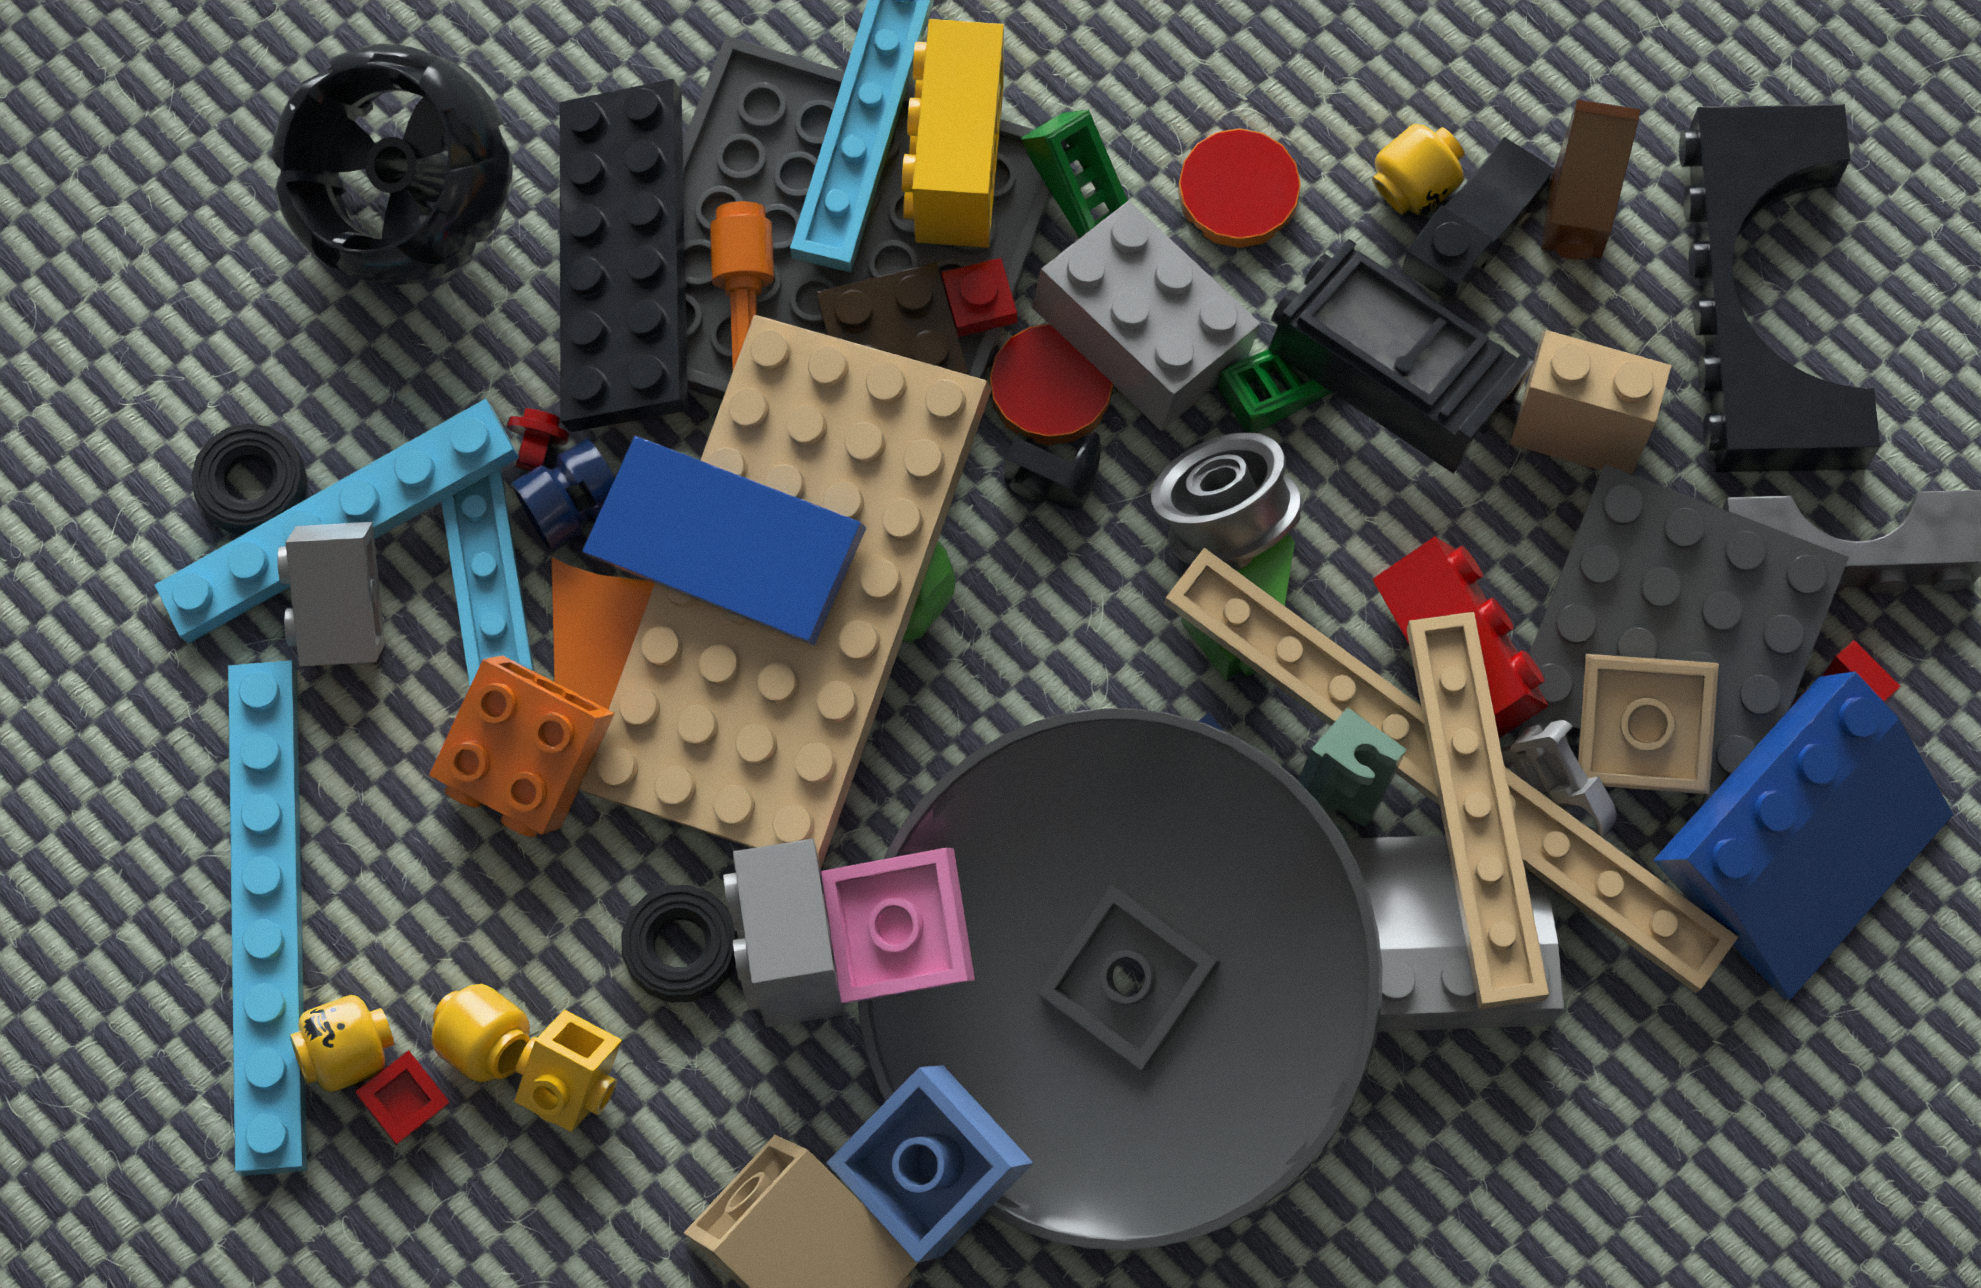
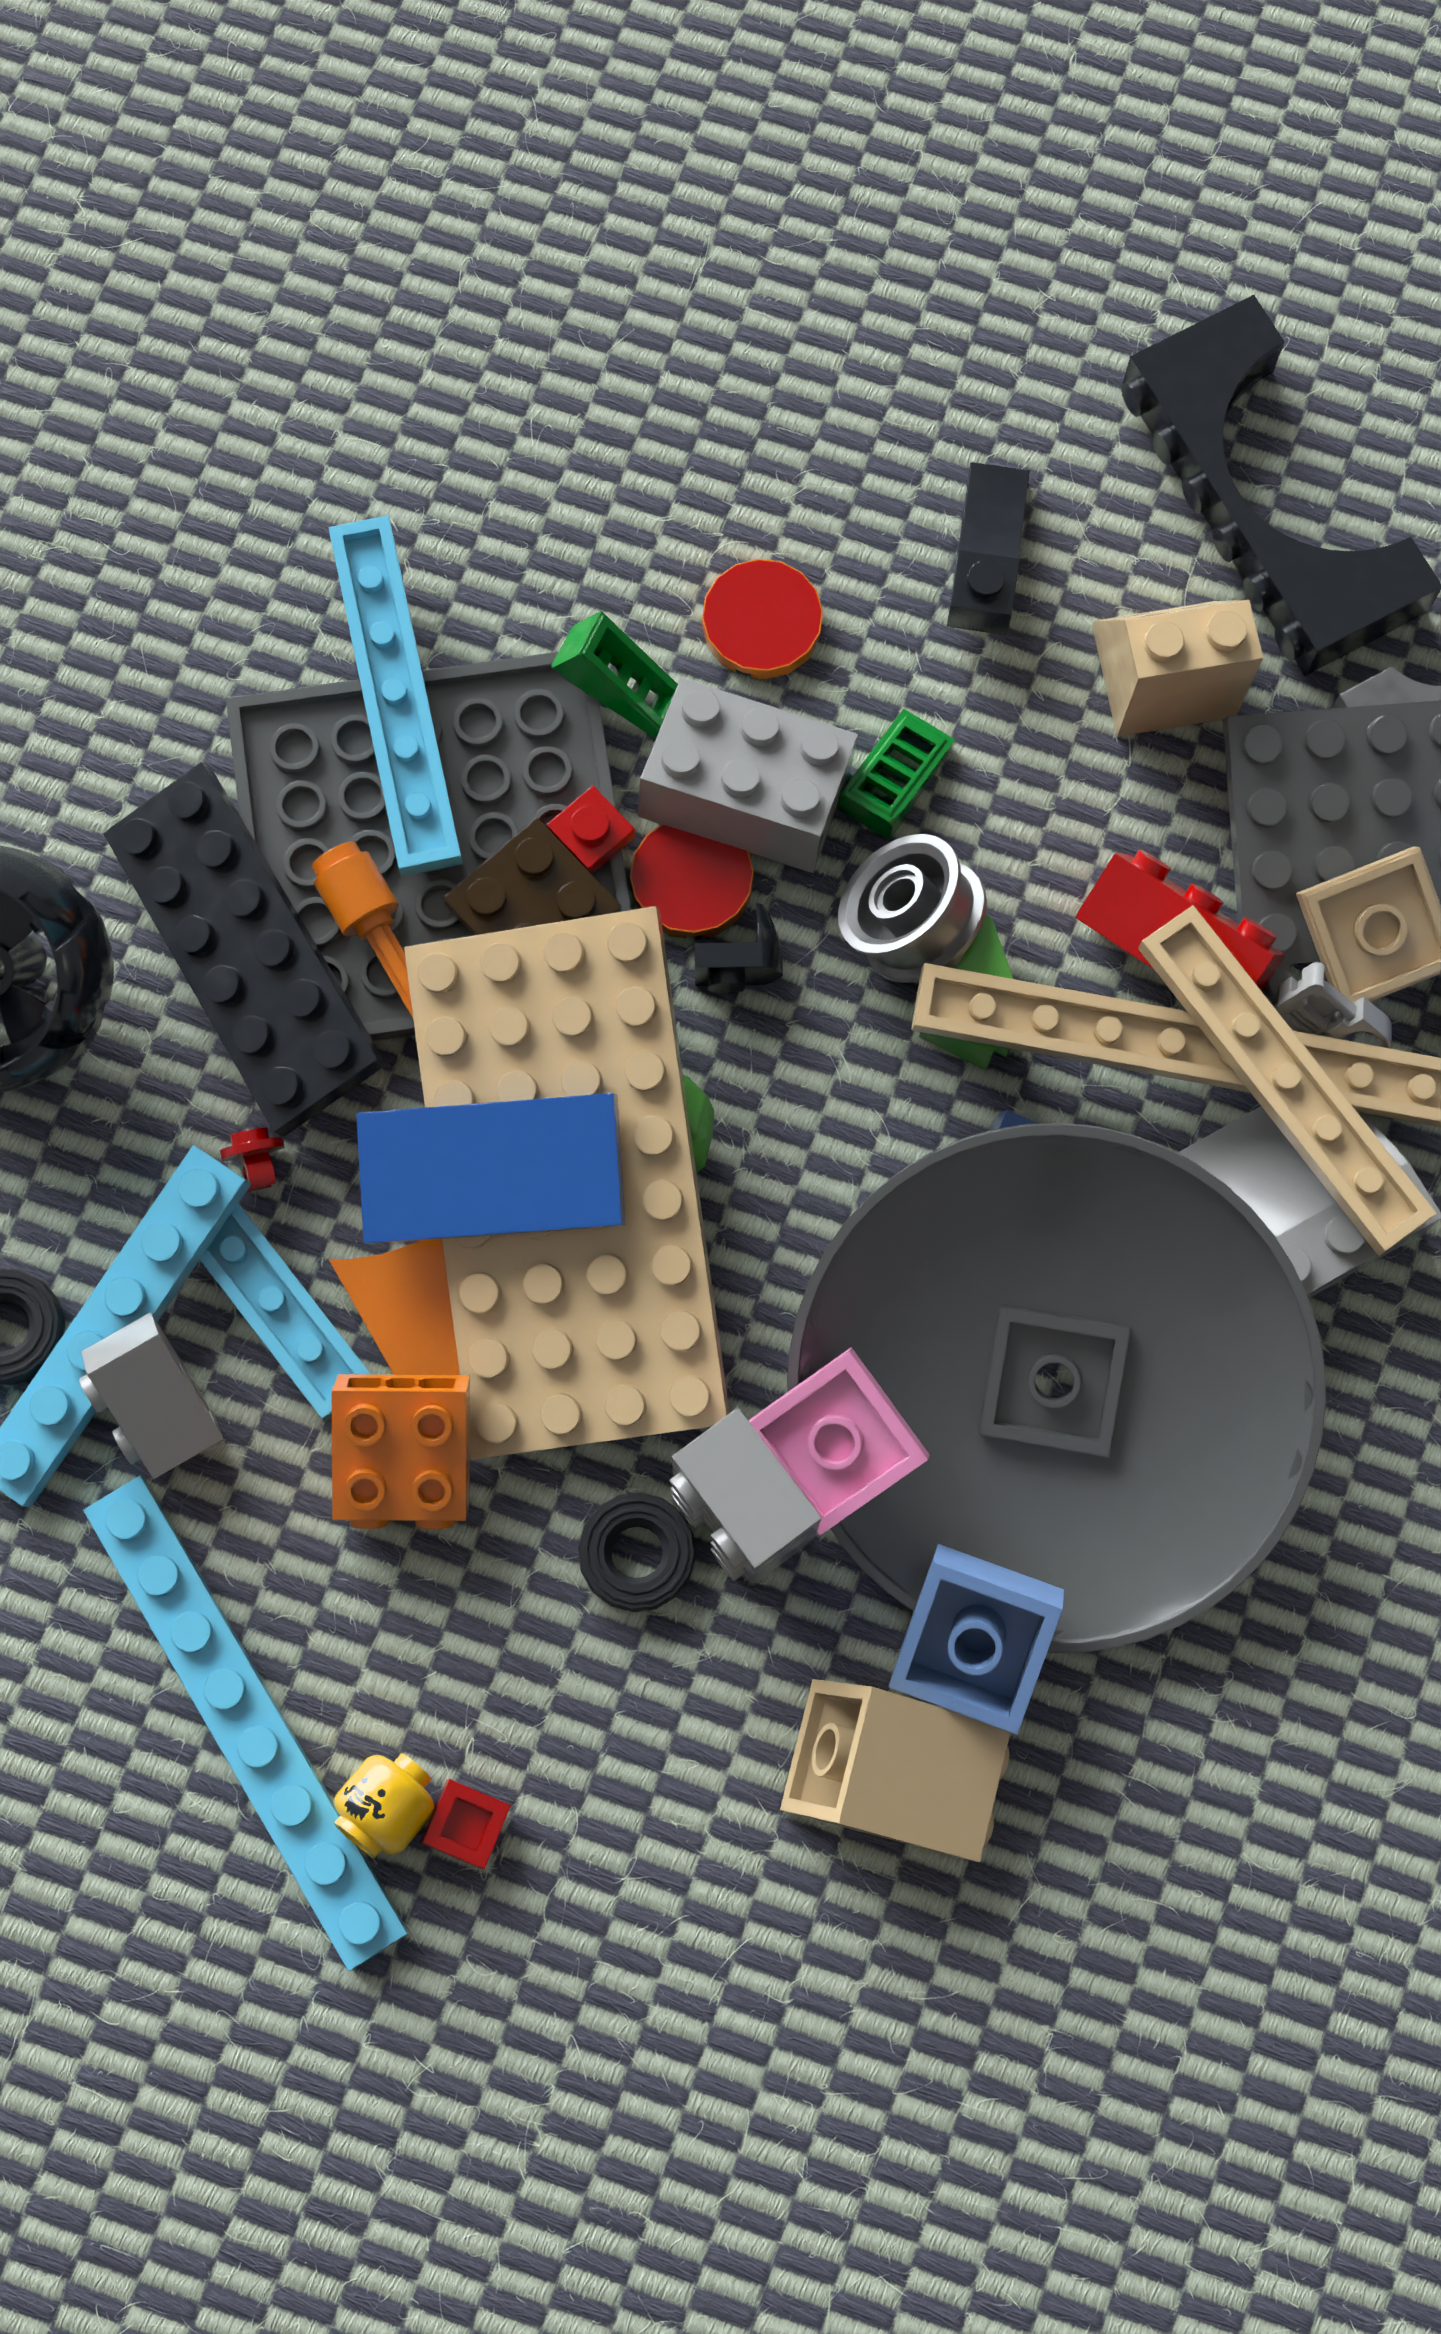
camera: 30 degrees left, 5 degrees up
(480, 1033) = (505, 1728): yellow head -> none
(548, 503) = (302, 1213): dark blue wheel -> none
(567, 1071) = (600, 1736): yellow brick -> none
(954, 133) = (496, 689): yellow brick -> none
(1352, 768) = (1152, 1092): sand green hinge -> none
(1396, 355) = (987, 705): black door -> none
(1419, 169) = (914, 527): yellow head -> none
(1588, 179) = (1075, 466): reddish brown slope -> none

